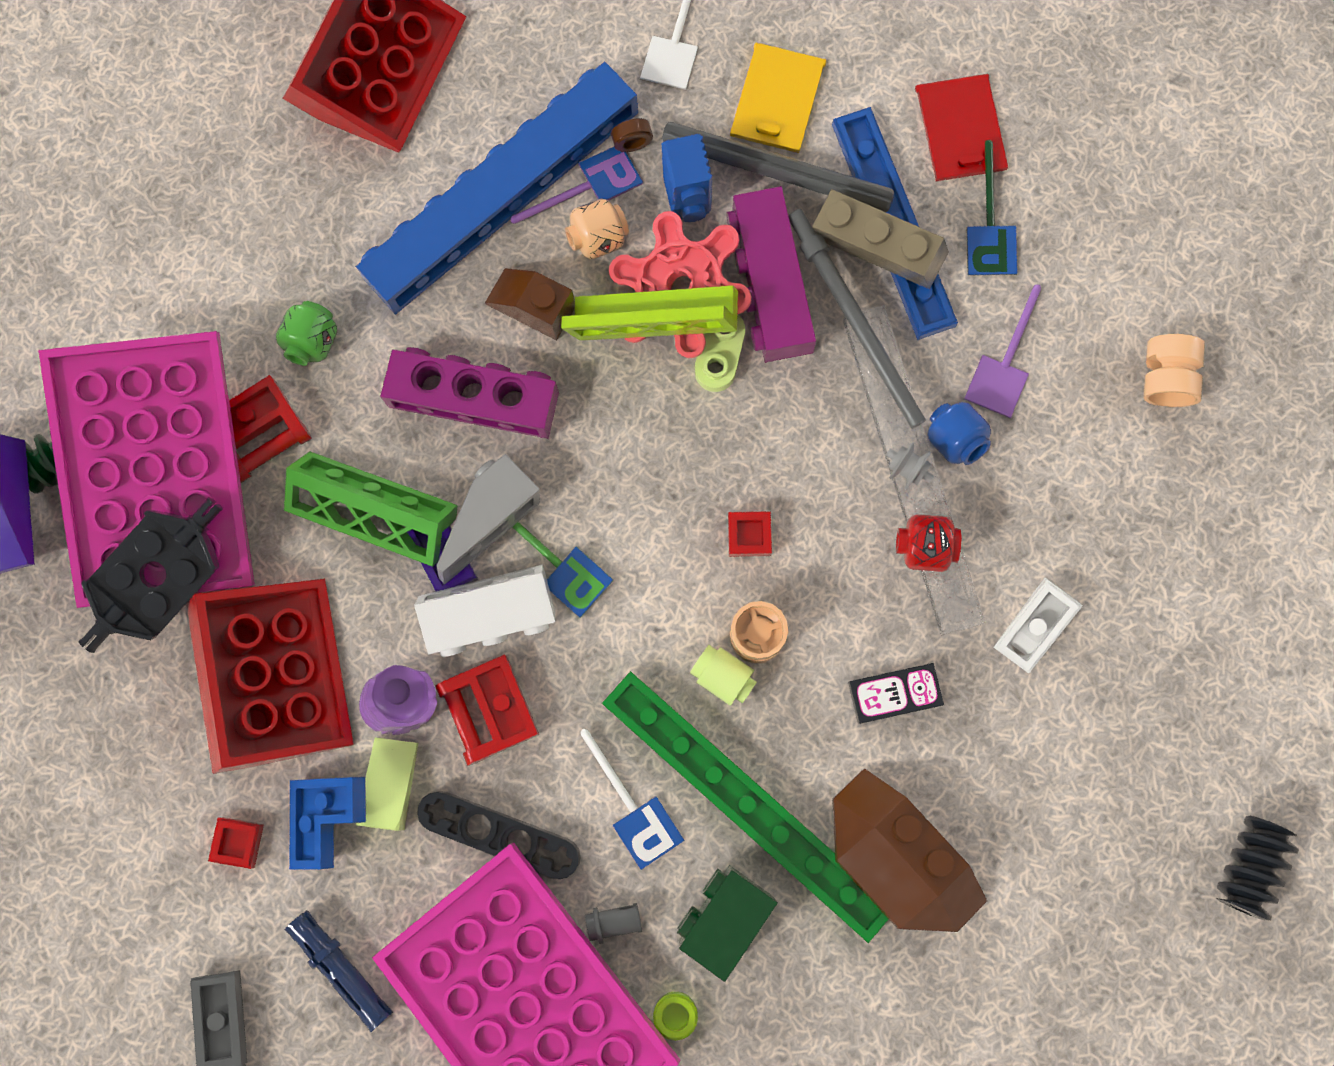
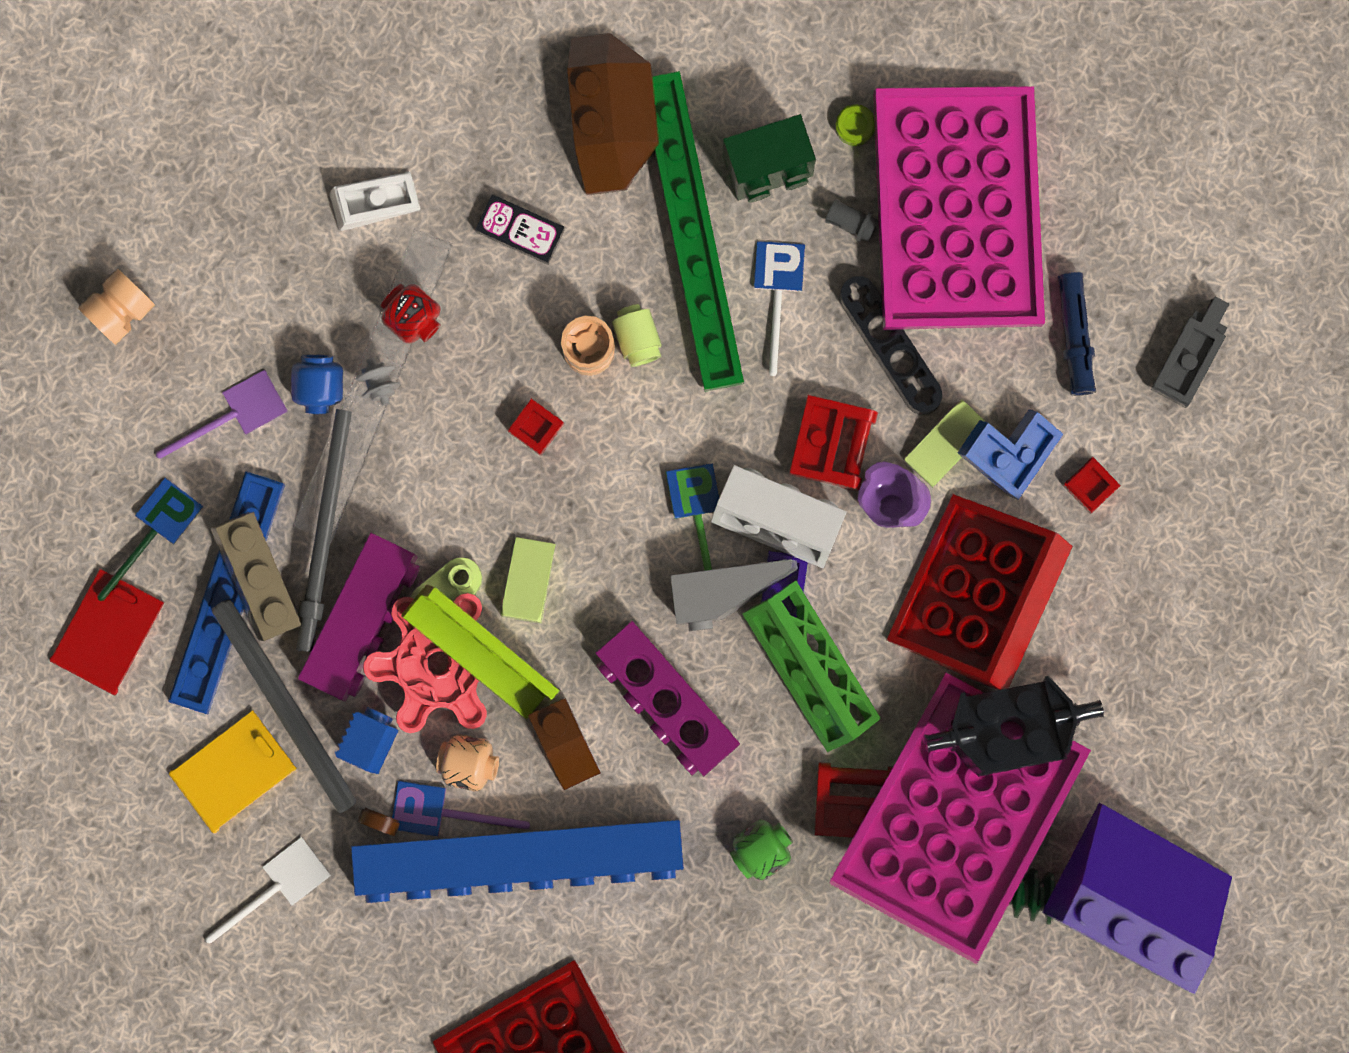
camera: 145 degrees left, 5 degrees up
(658, 405) = (528, 580): none -> yellowish green slope

